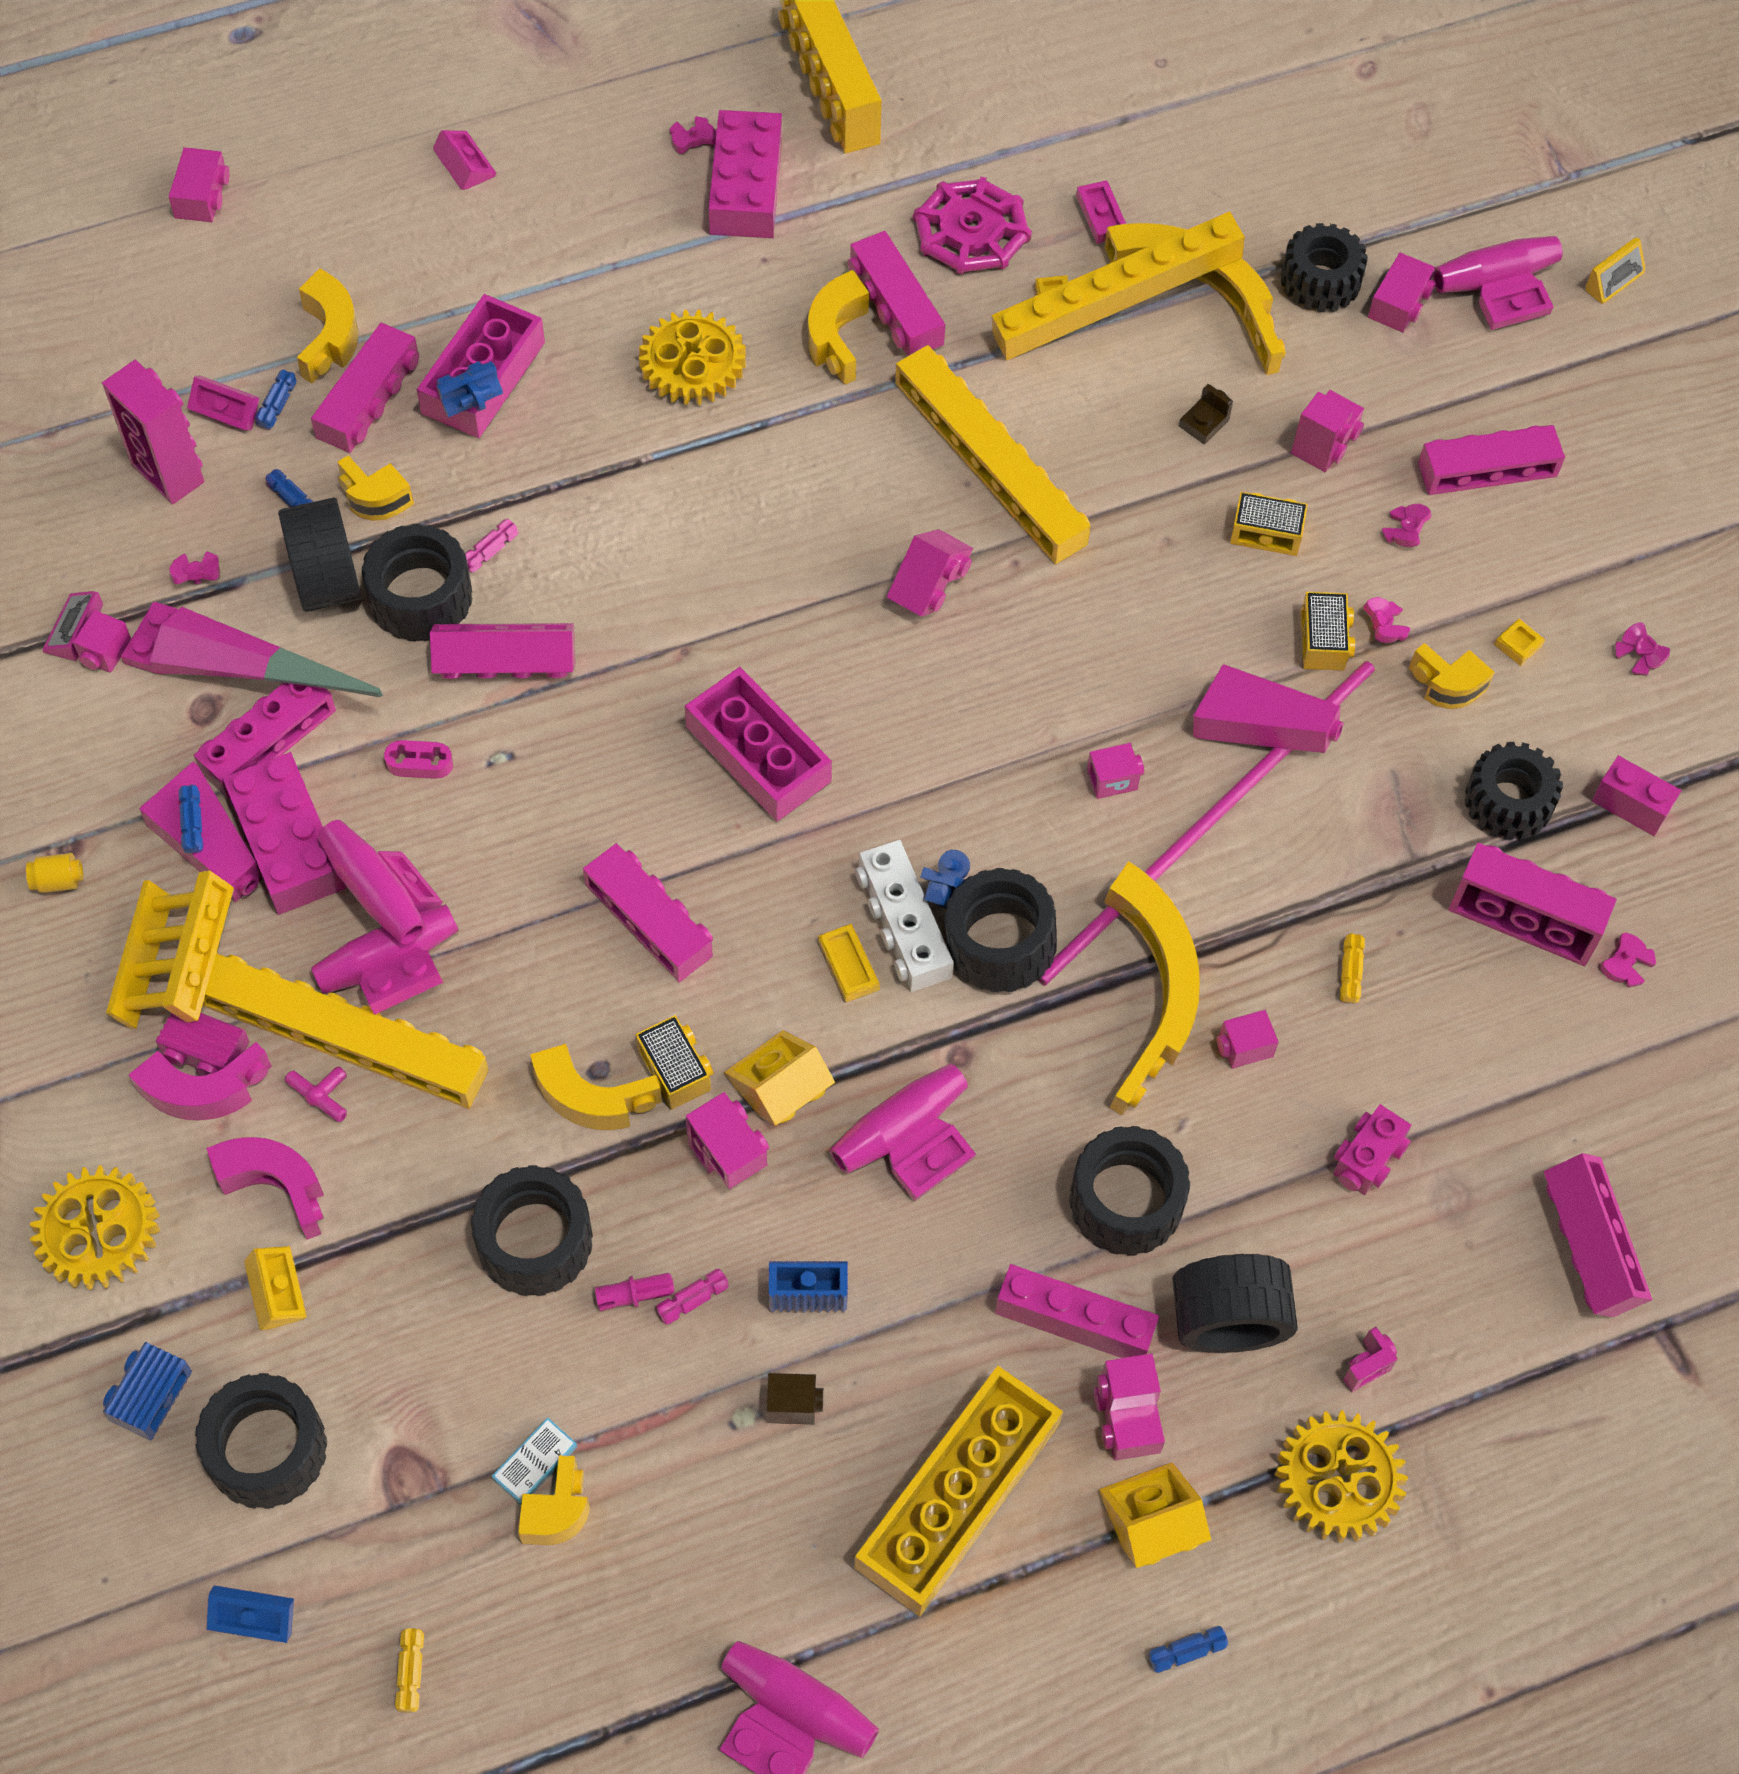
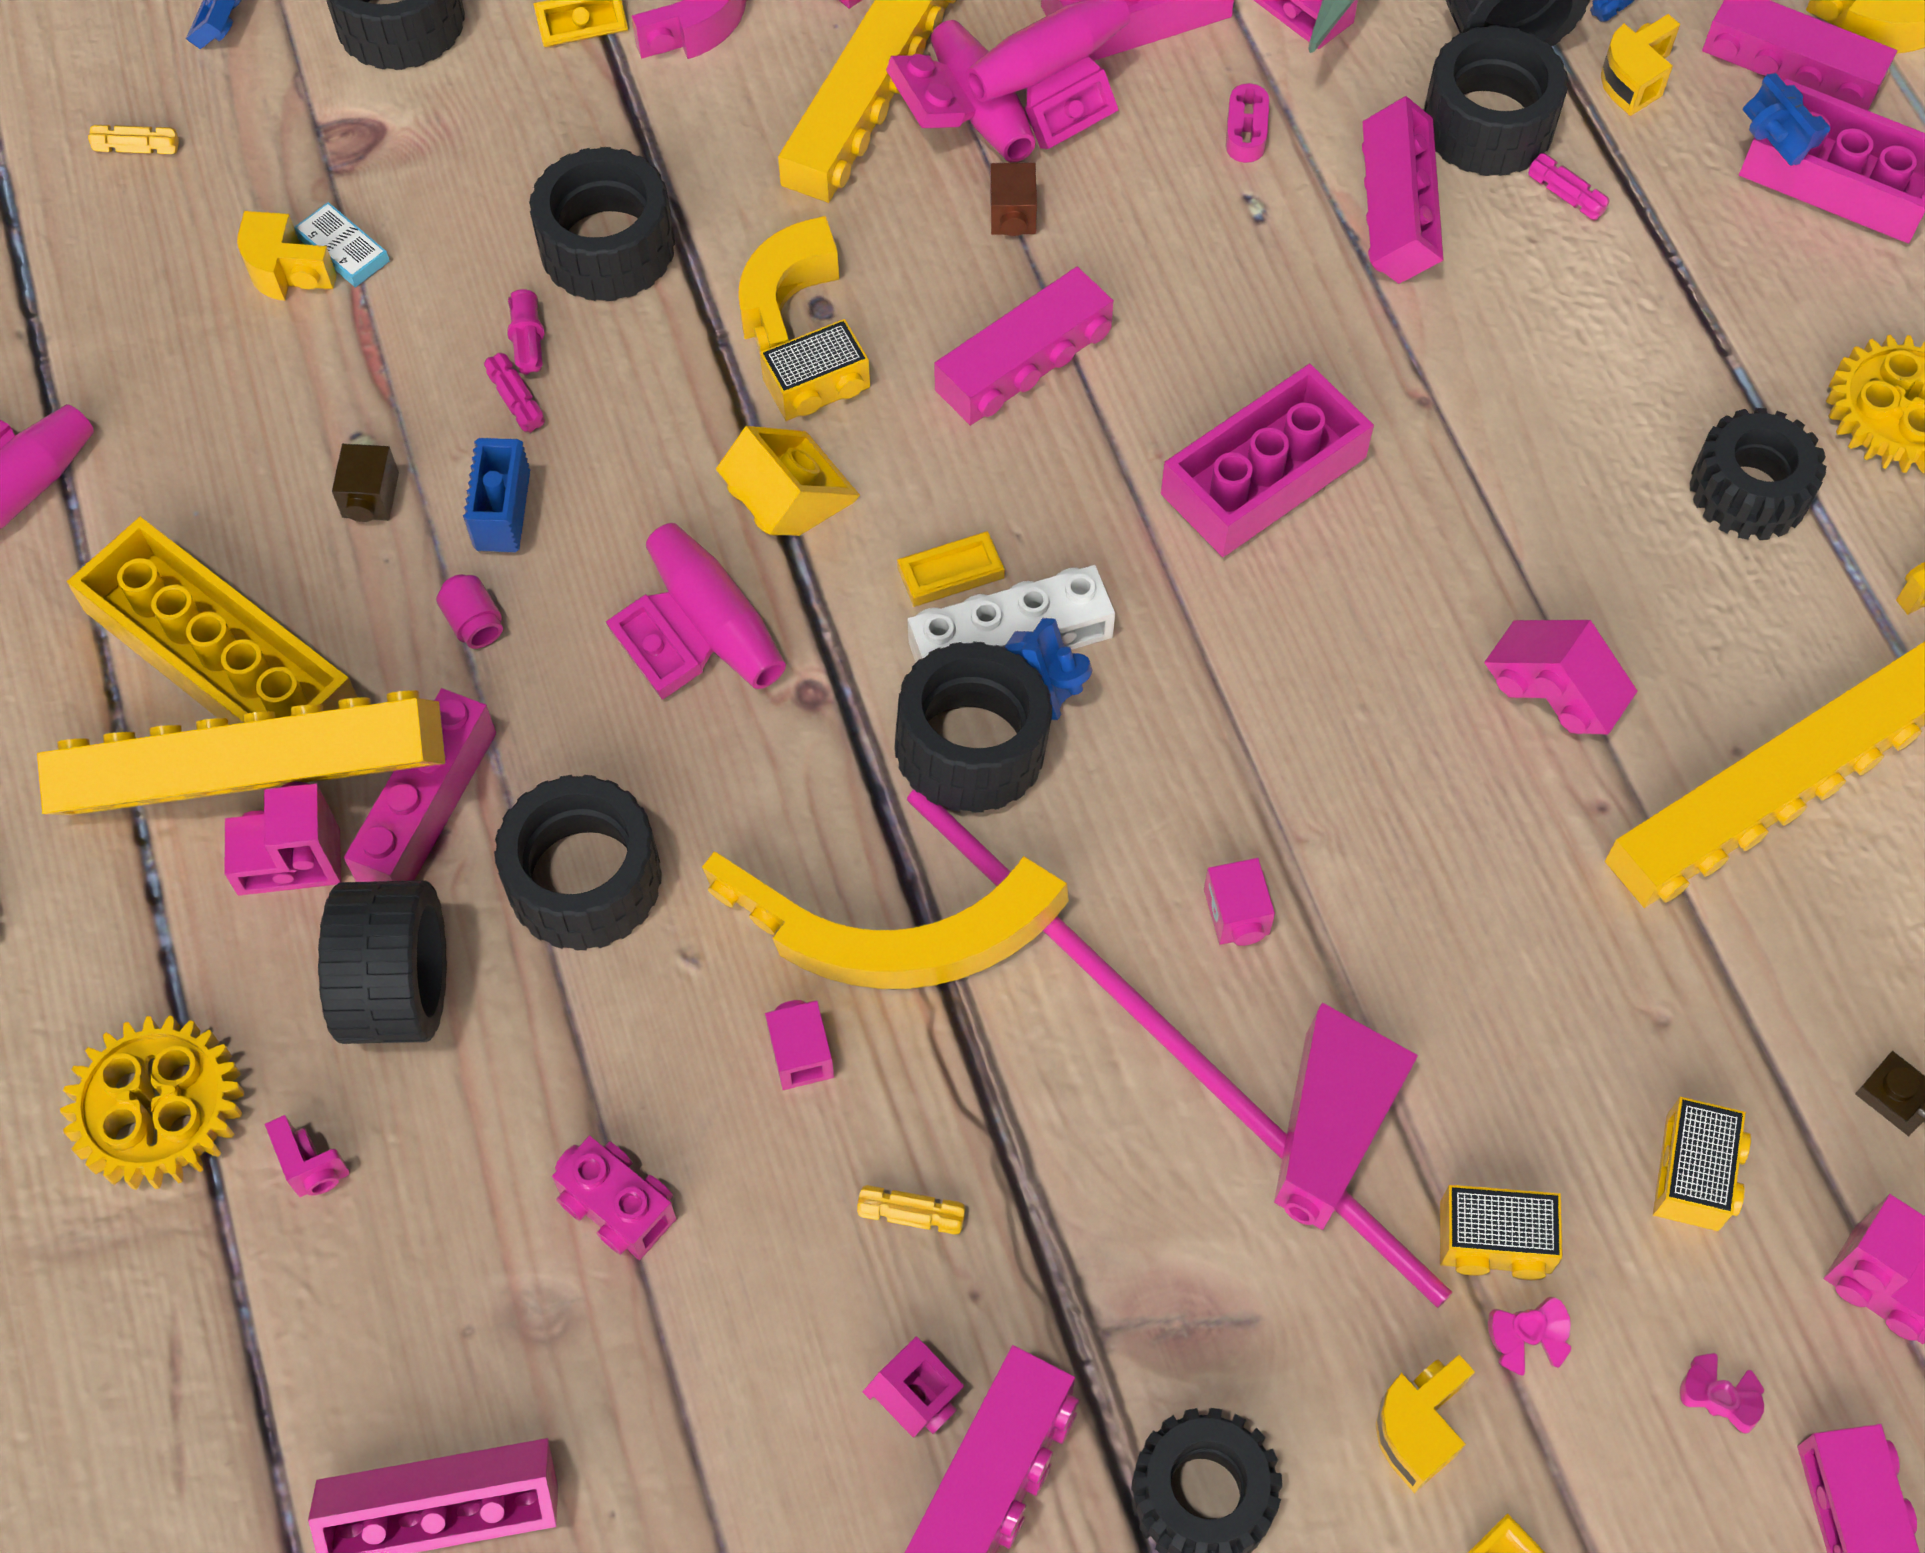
camera: 95 degrees right, 0 degrees up
(318, 1095) = (807, 42): dark pink piece -> none
(501, 923) = (1013, 198): none -> copper brick
(725, 1141) = (686, 399): dark pink brick -> none
(759, 467) = (1770, 446): none -> black tyre
(909, 1301) = (470, 610): none -> dark pink brick
(1080, 1432) = (241, 756): none -> yellow brick
(1156, 1514) = (146, 868): yellow slope -> none
(1474, 957) = (916, 1389): none -> dark pink brick

